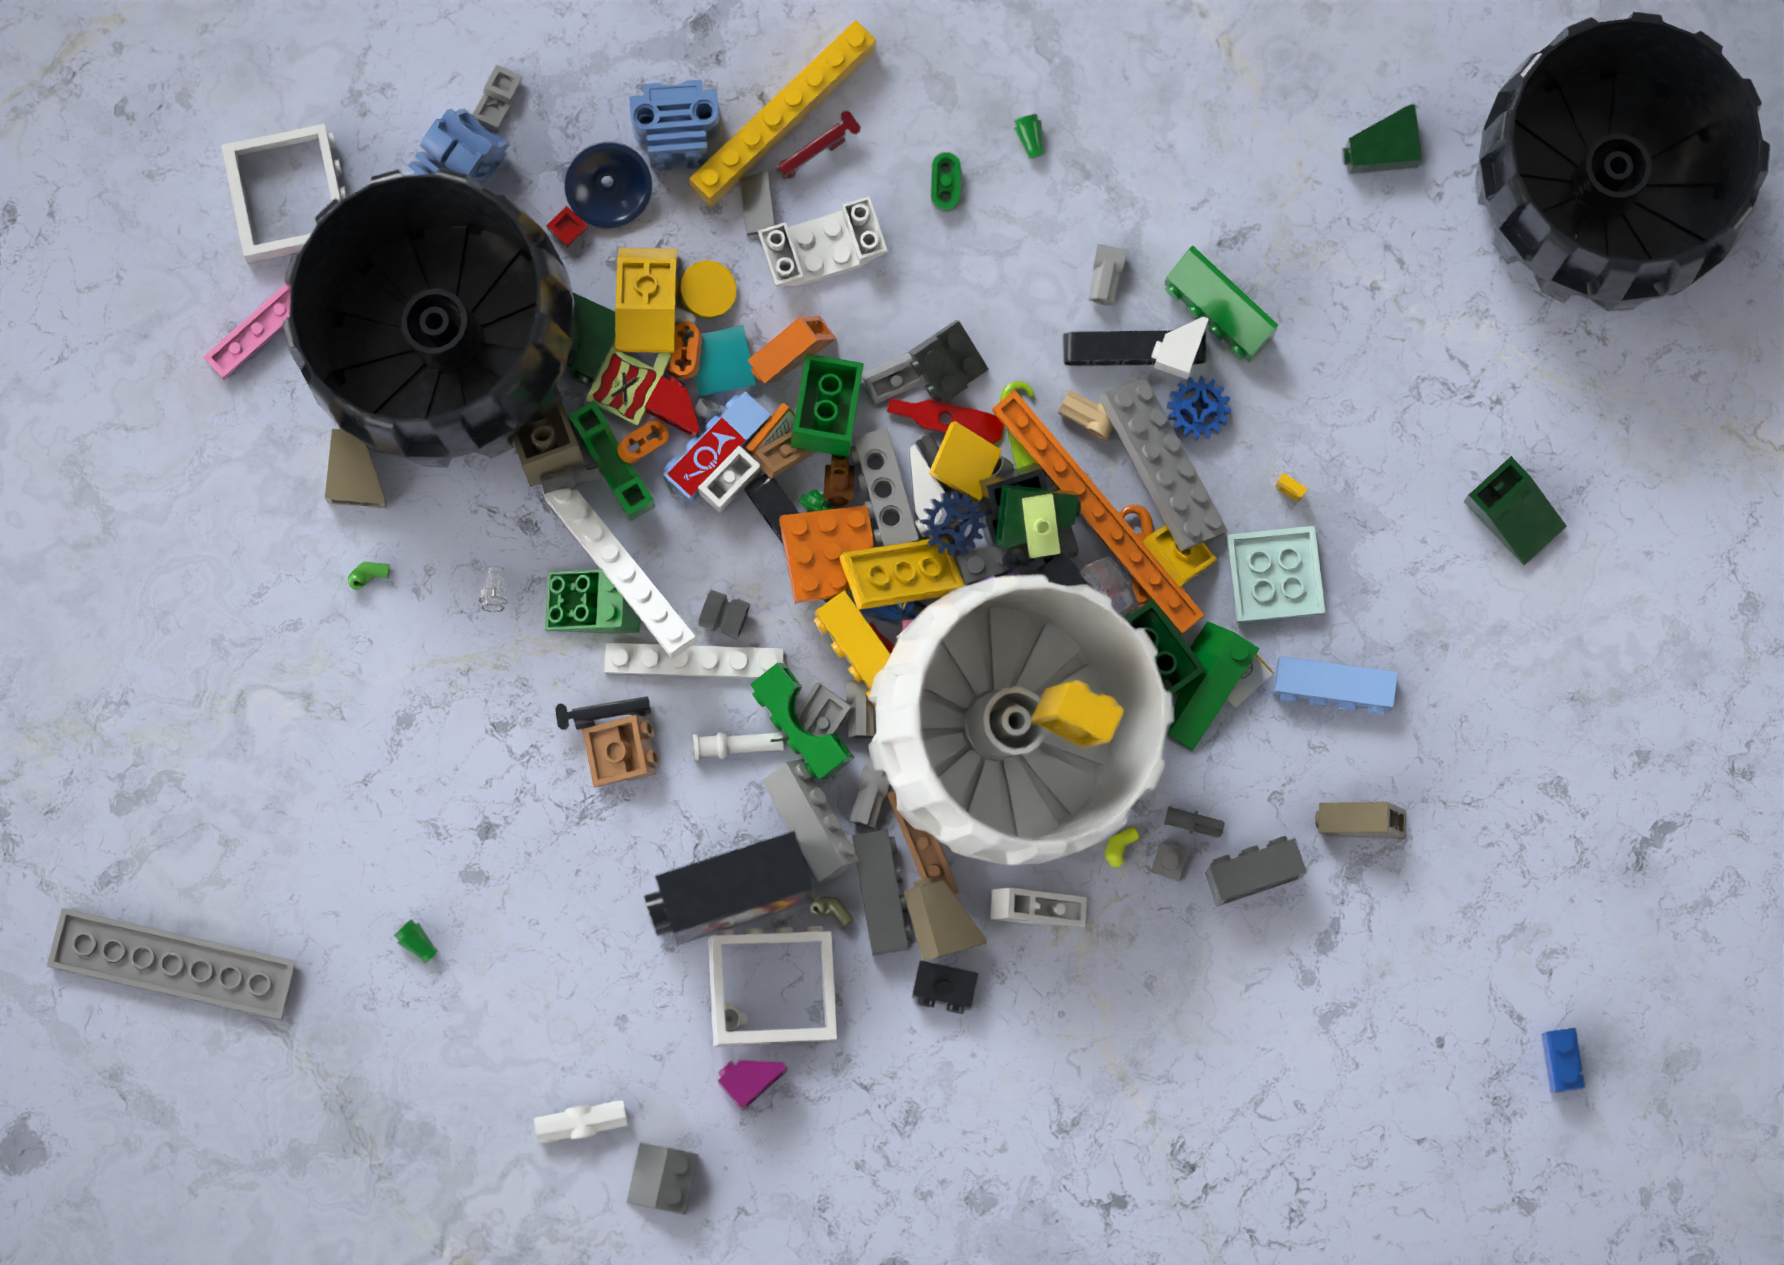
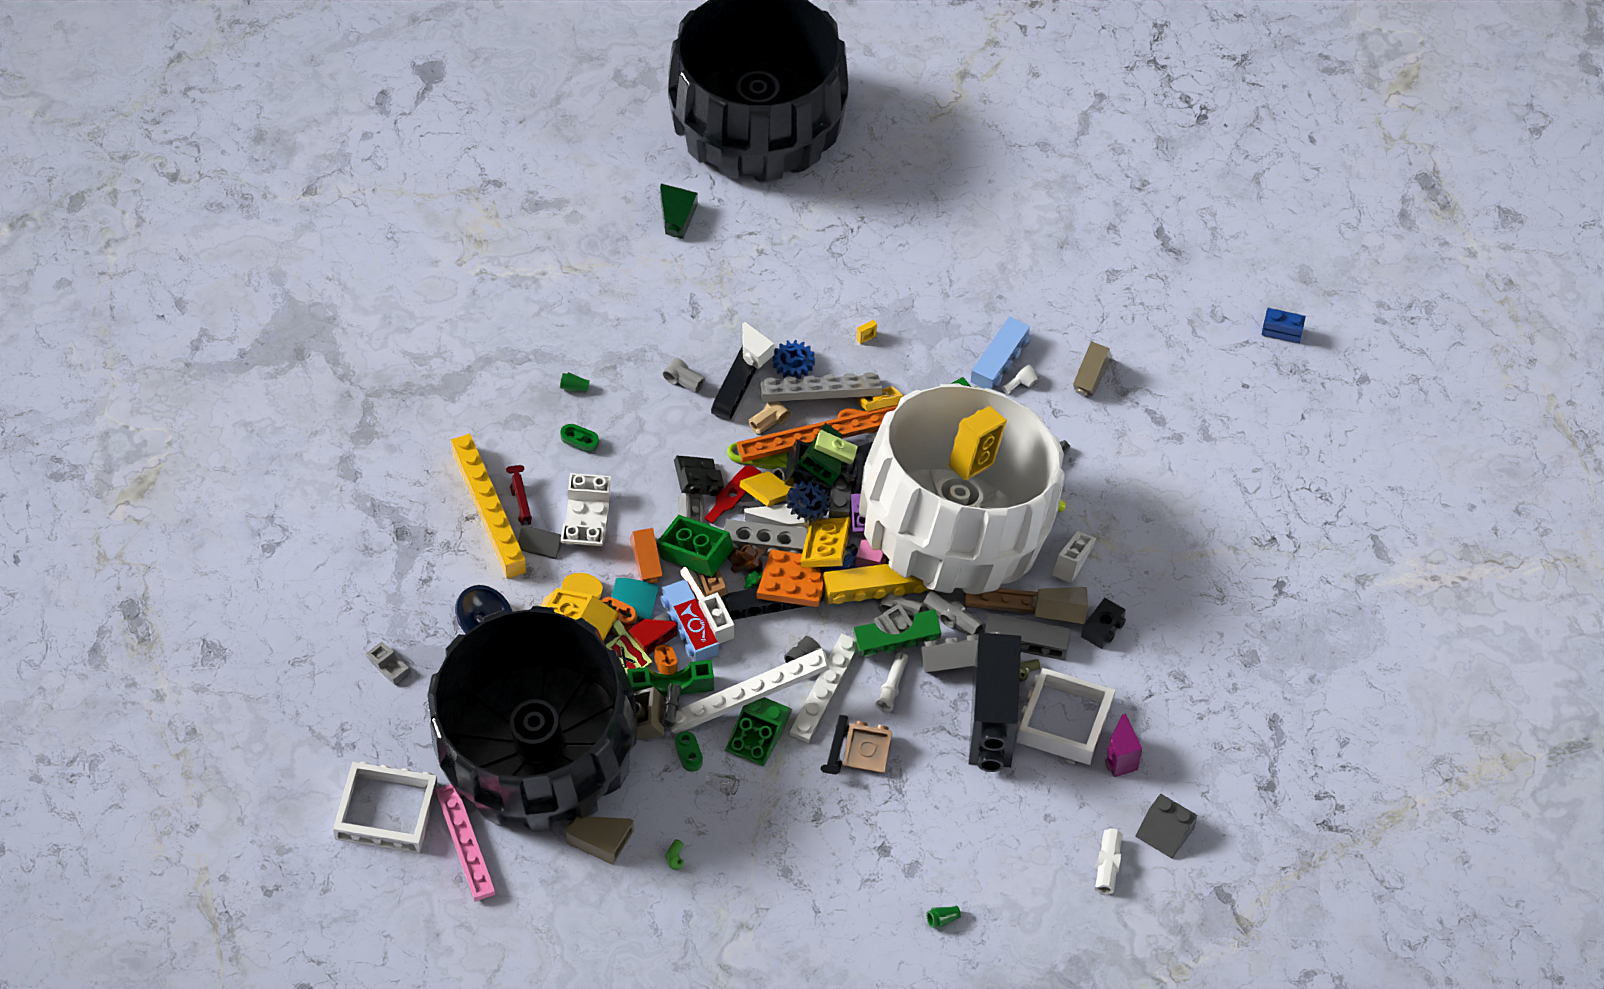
camera: 65 degrees left, 25 degrees down
(461, 146) = (411, 685): medium blue piece -> none
(528, 529) = (687, 750): none -> green plate
(675, 127) = (463, 560): medium blue piece -> none
(1169, 862) = (1075, 479): light grey plate -> none
(1227, 307) = (723, 323): slope -> none
(1255, 870) = (1101, 430): dark grey brick -> none
(1275, 574) = (917, 359): light aqua plate -> none
(1311, 734) = (1026, 377): none -> white bar
(1515, 510) = (933, 228): dark green slope -> none

